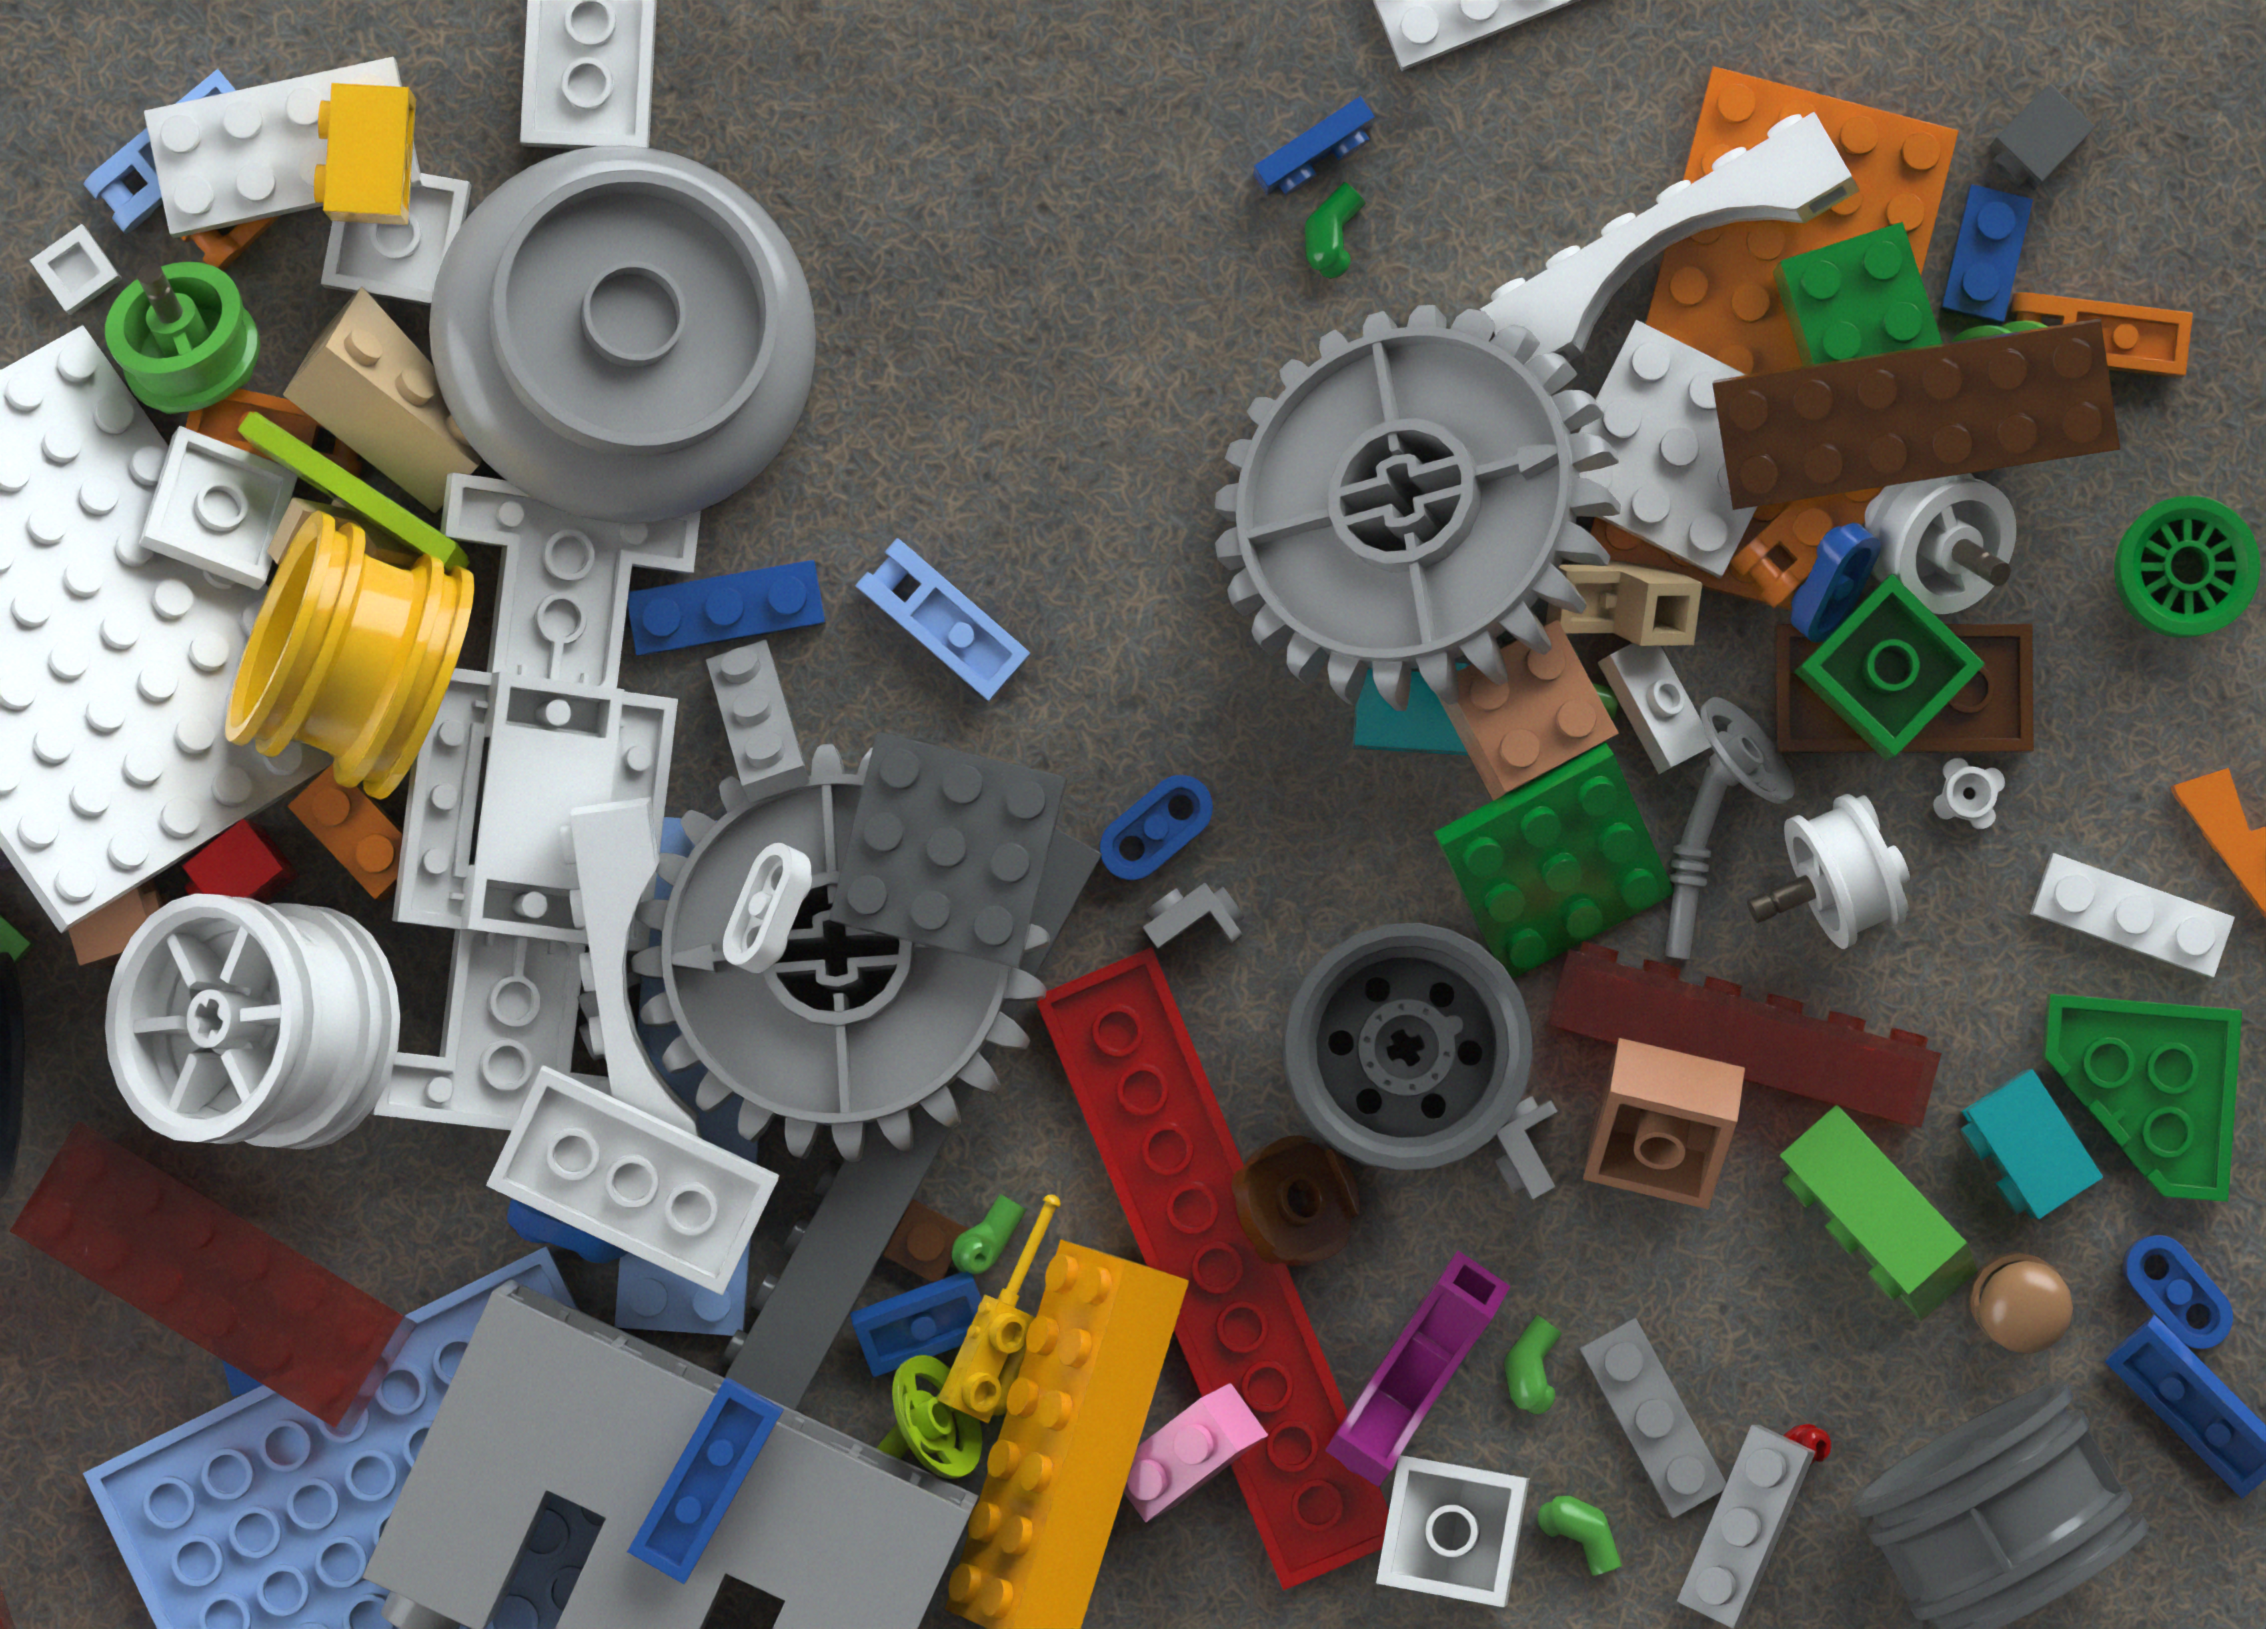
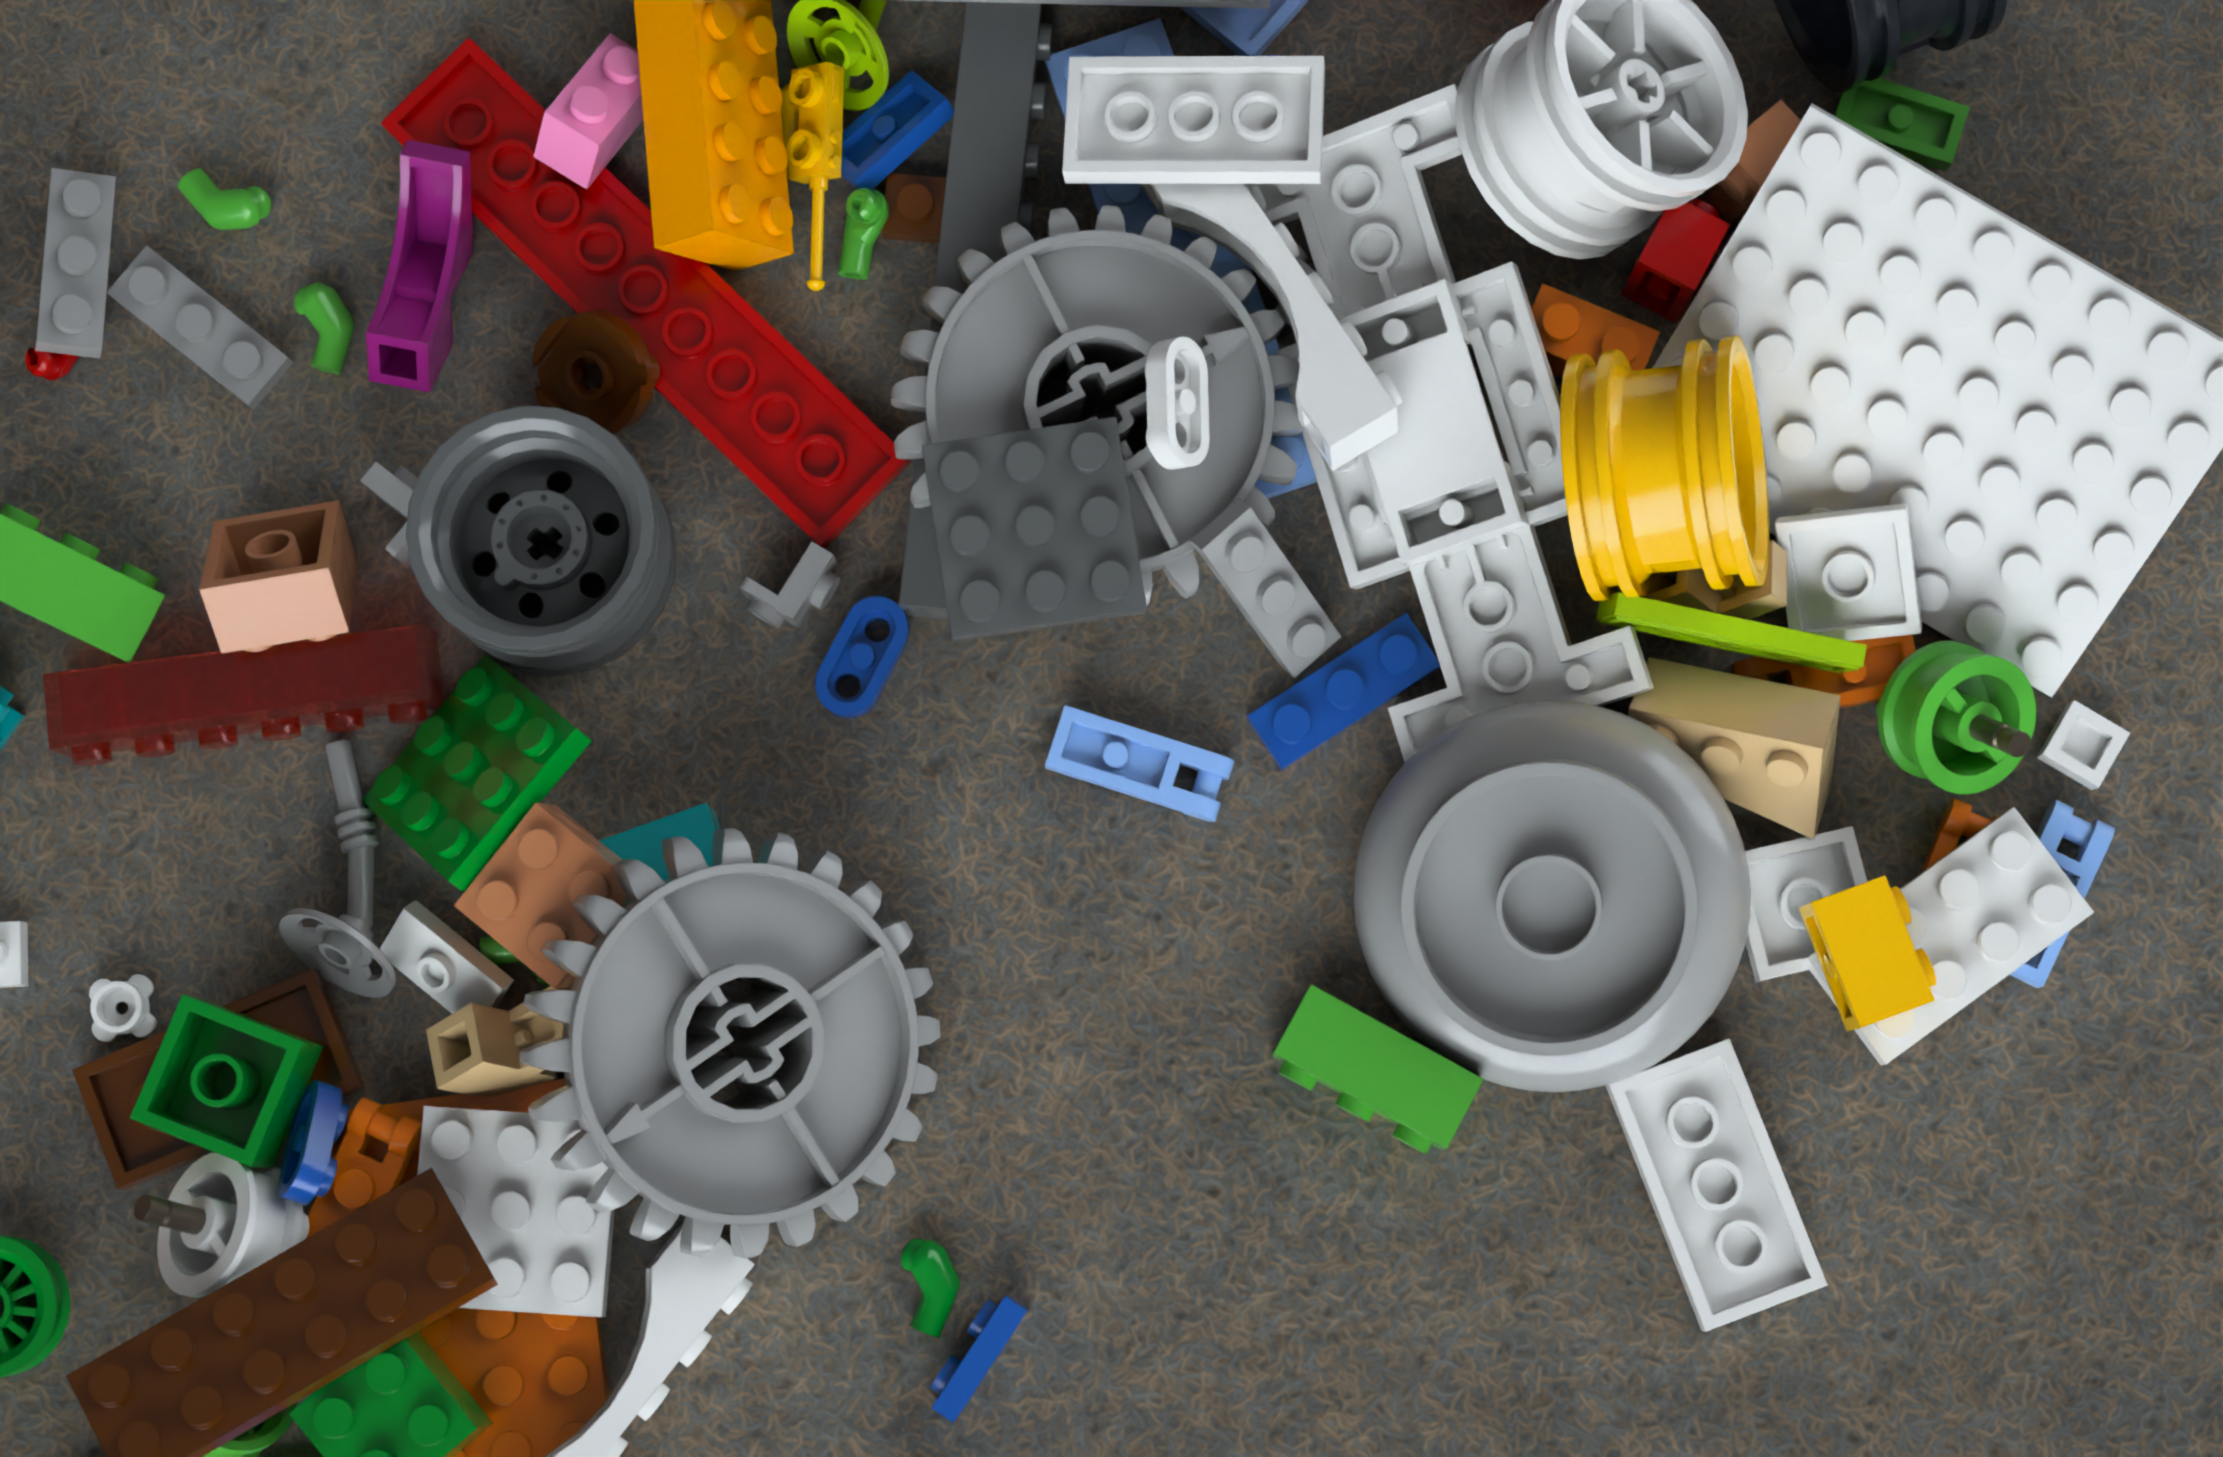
camera: 160 degrees right, 5 degrees down
(850, 249) = (1375, 1070): none -> bright green brick
(1452, 1531) = (330, 144): white slope -> none
(1840, 872) = (204, 874): white wheel -> none

